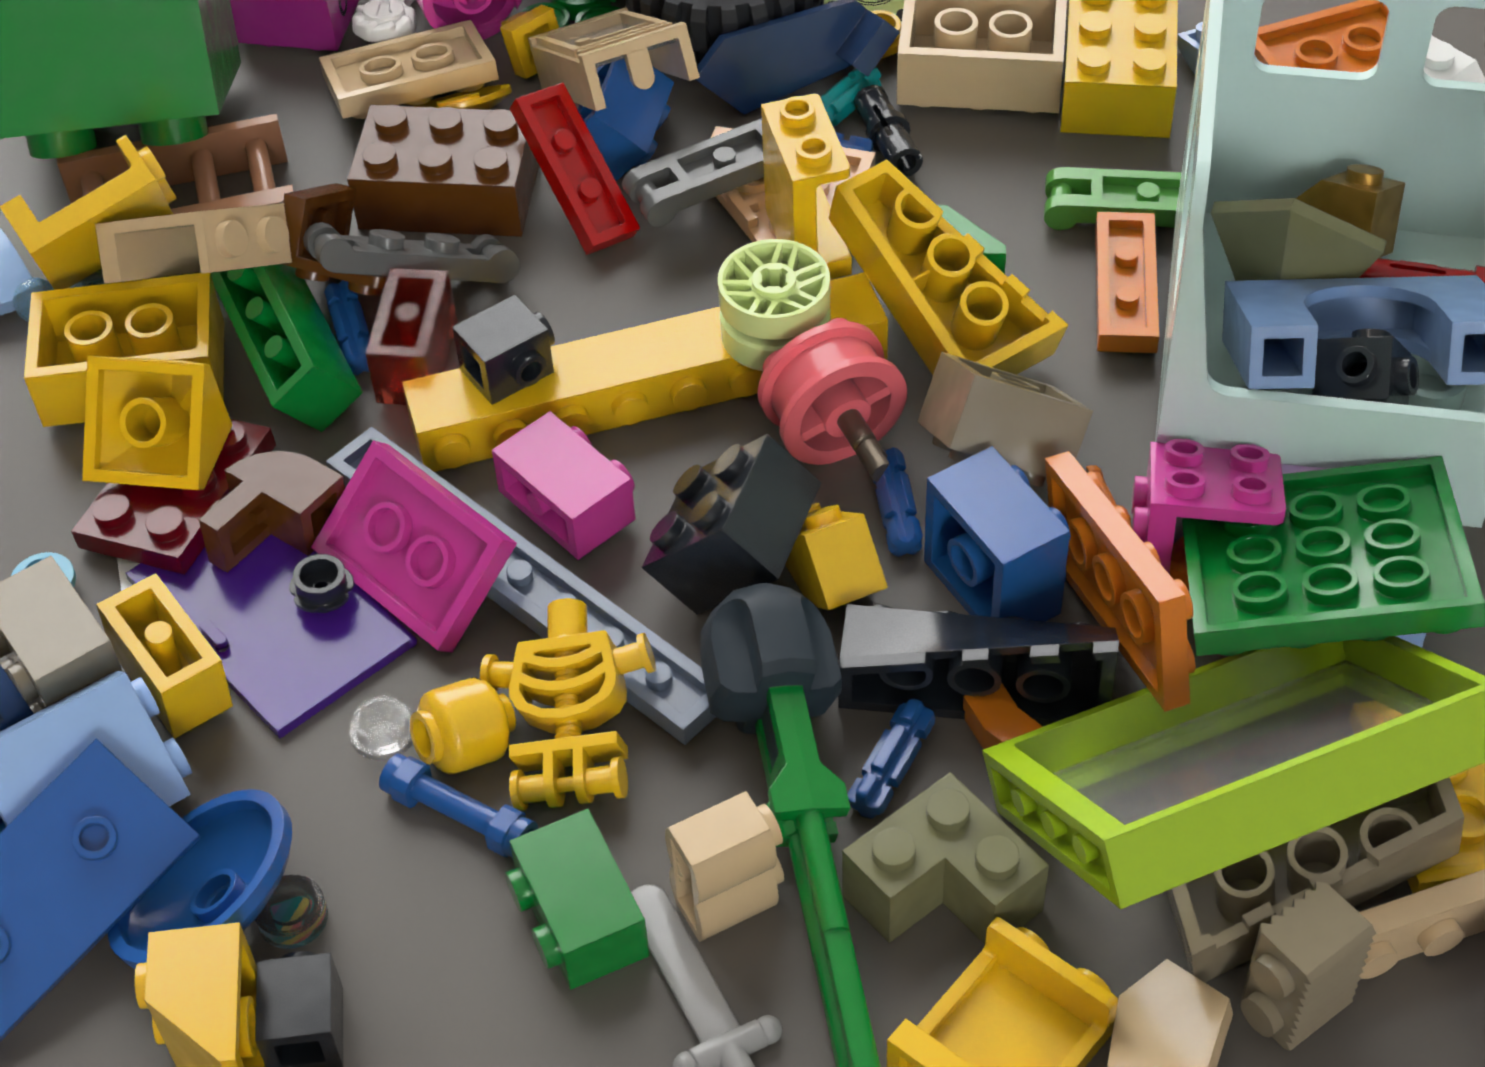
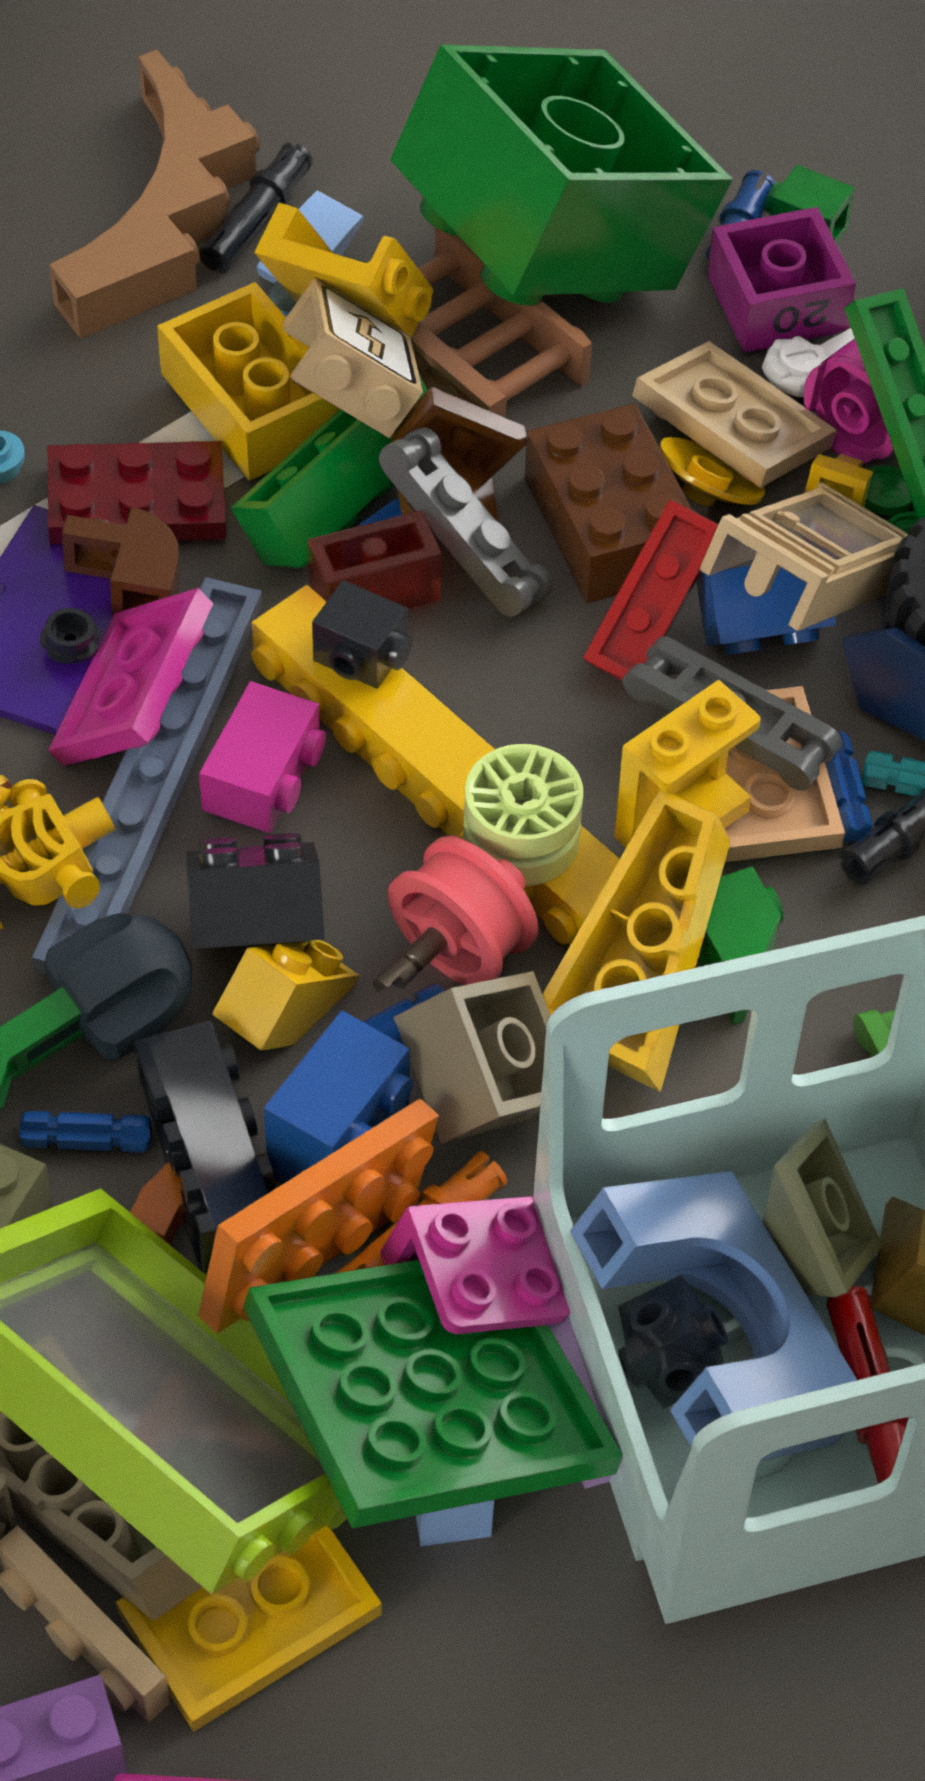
camera: 60 degrees right, 5 degrees up
(152, 422) = (156, 434): yellow slope -> none

